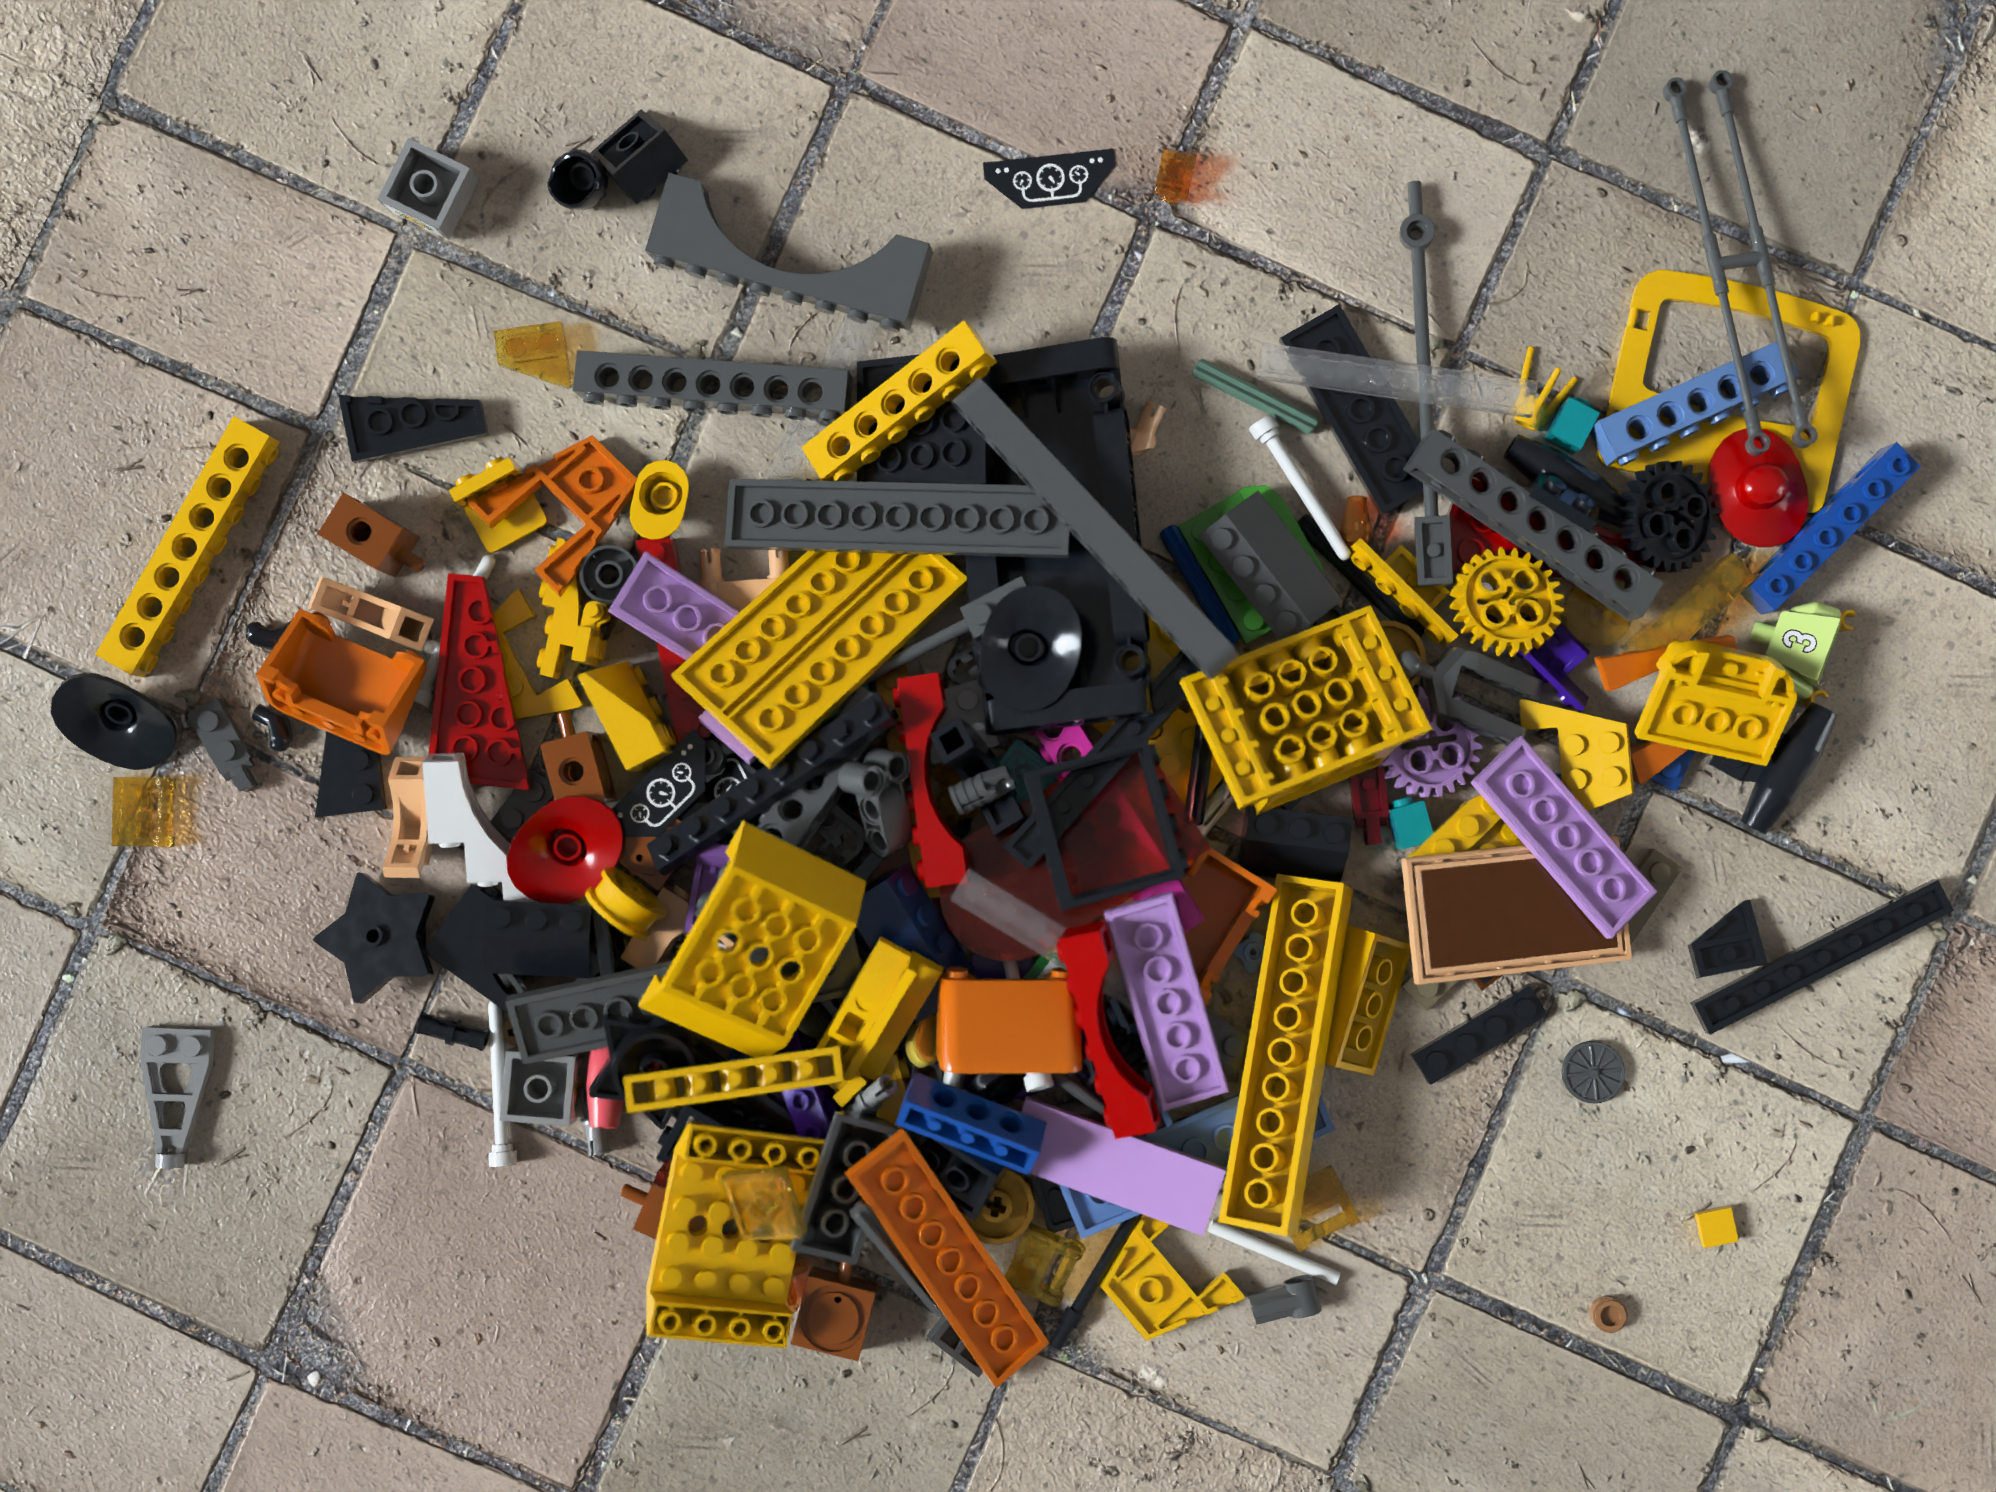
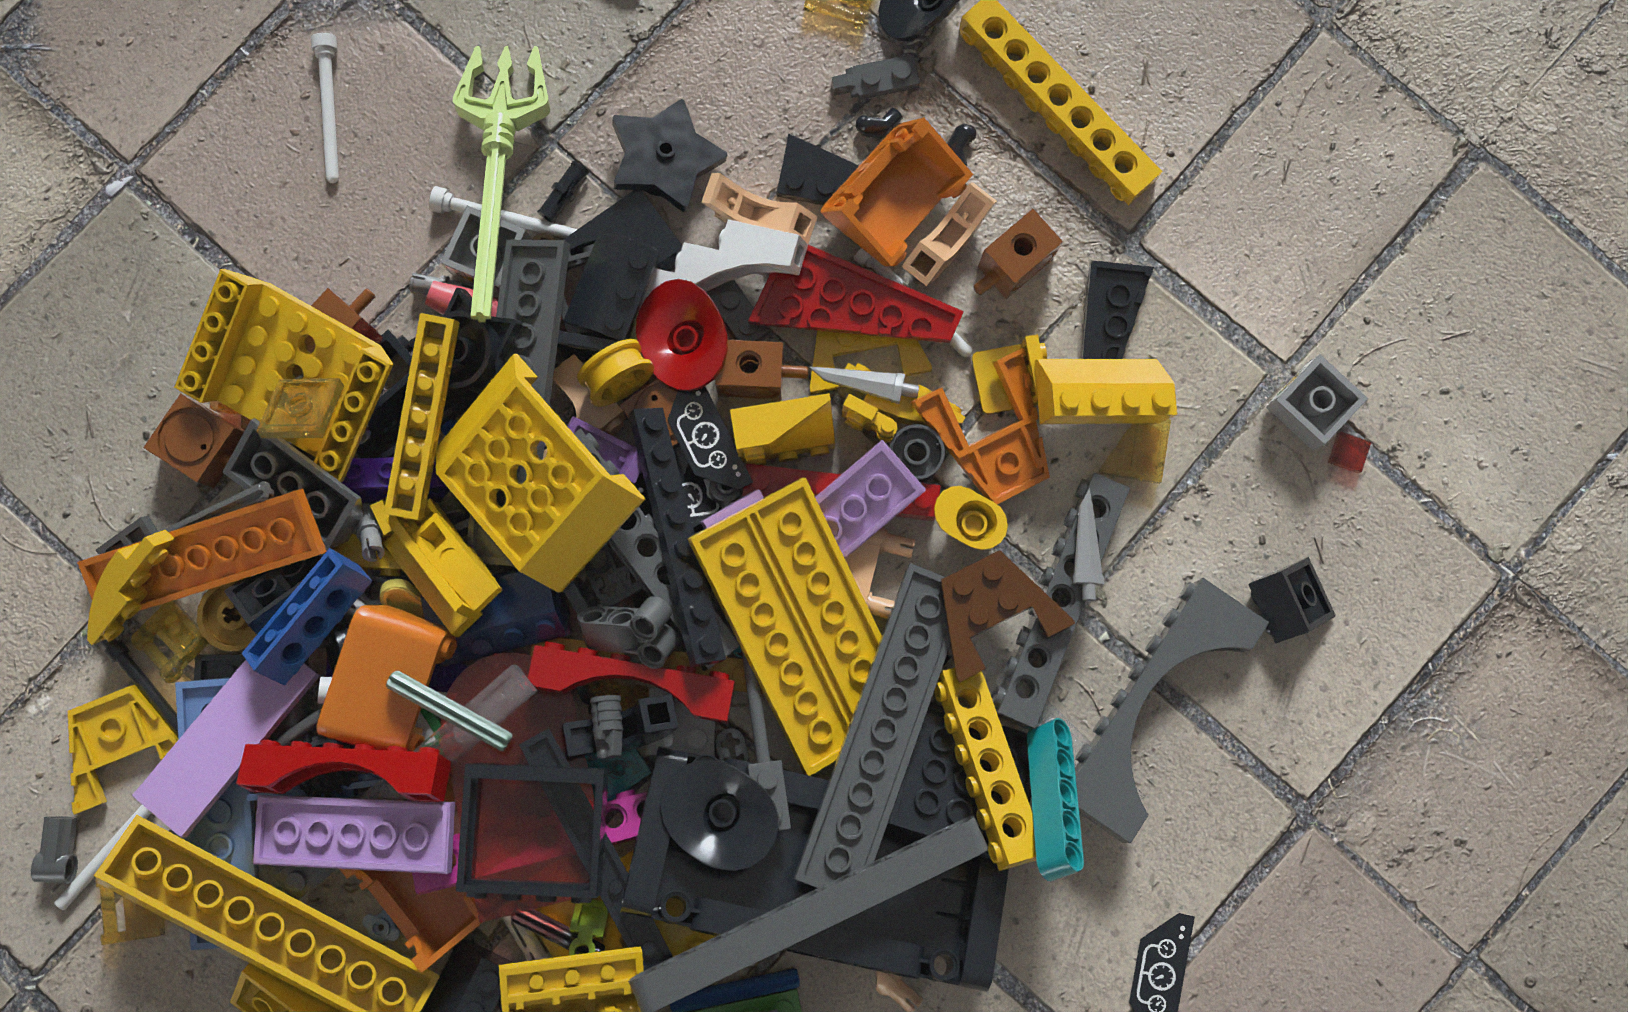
camera: 110 degrees right, 5 degrees down
(377, 1338) = (324, 47): none -> white piece
(396, 1121) = (499, 119): none -> yellowish green piece
(469, 142) = (1349, 452): none -> clear red tile
(486, 404) = (1104, 391): none -> yellow slope
(552, 638) = (878, 384): none -> light grey bar
(577, 180) = (1285, 537): black hair -> none
(662, 370) = (1087, 557): none -> light grey bar
(732, 457) = (987, 596): none -> reddish brown wing
(910, 328) = (1054, 800): none -> teal beam
(1003, 1328) = (120, 586): none -> yellow slope
(1015, 946) = (449, 710): none -> axle
(1177, 745) = (588, 922): none -> lime plate

